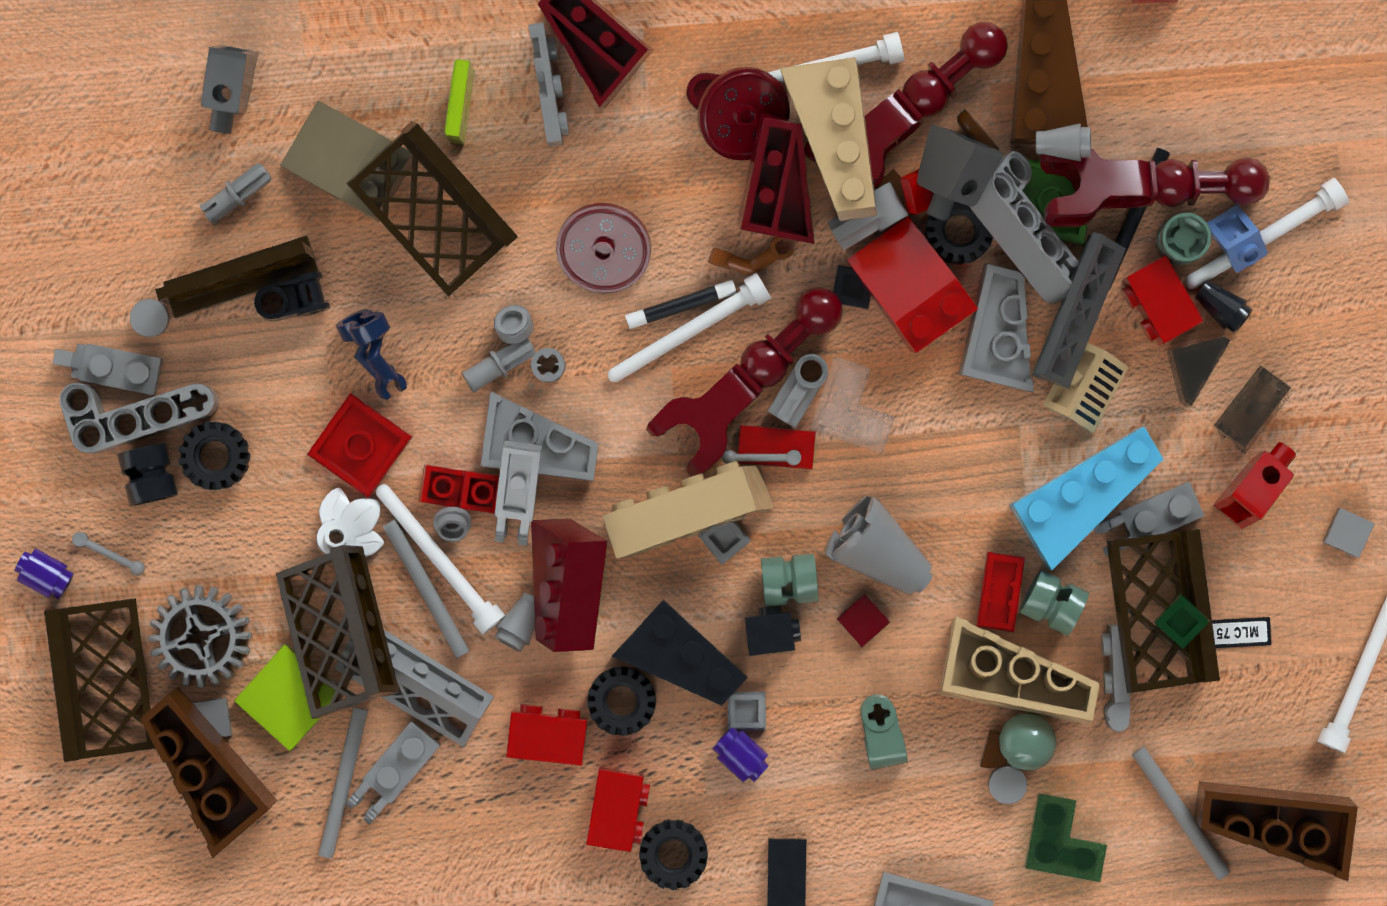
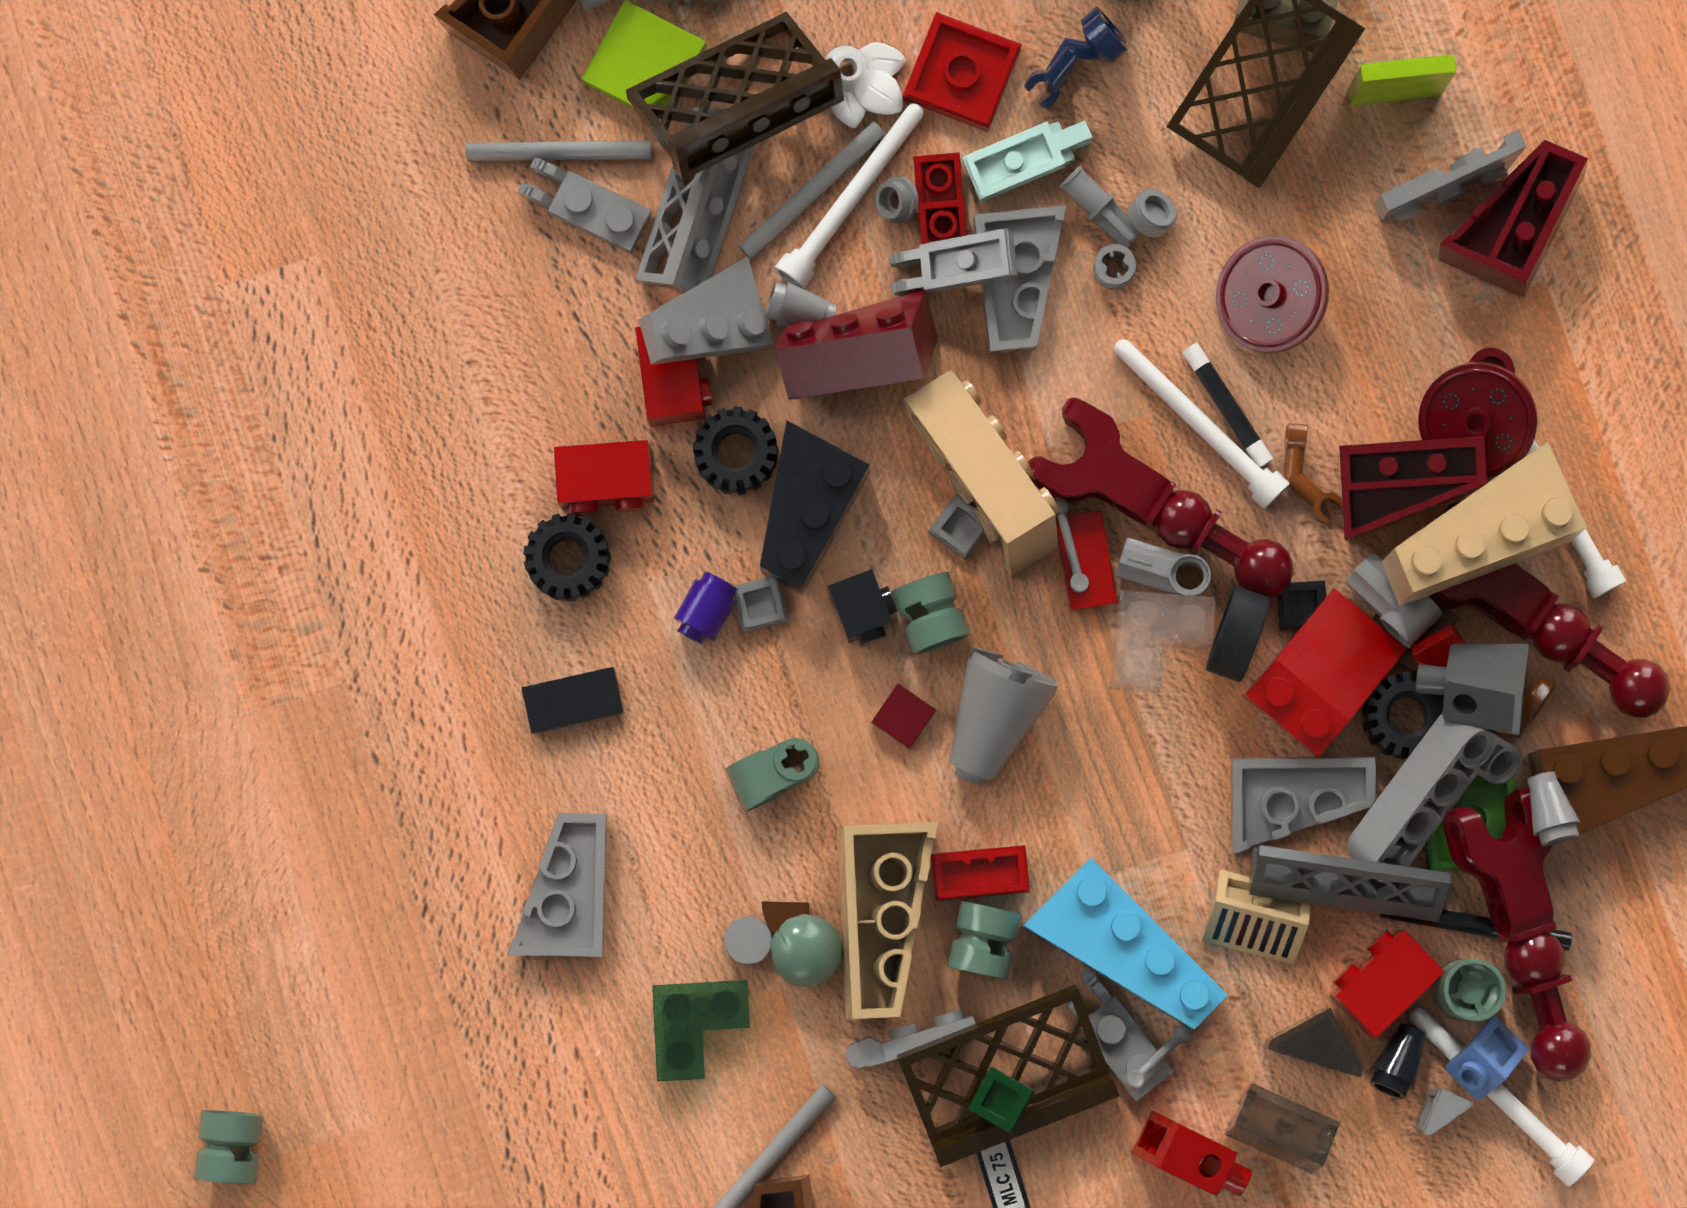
camera: 80 degrees right, 5 degrees down
(443, 414) = (1024, 157): none -> light aqua hinge
(514, 695) = (709, 320): none -> light grey wing
(866, 345) = (1238, 634): none -> black tyre
(1189, 514) = (1135, 1078): none -> light grey hinge
(1268, 285) = (1439, 1110): none -> light grey slope

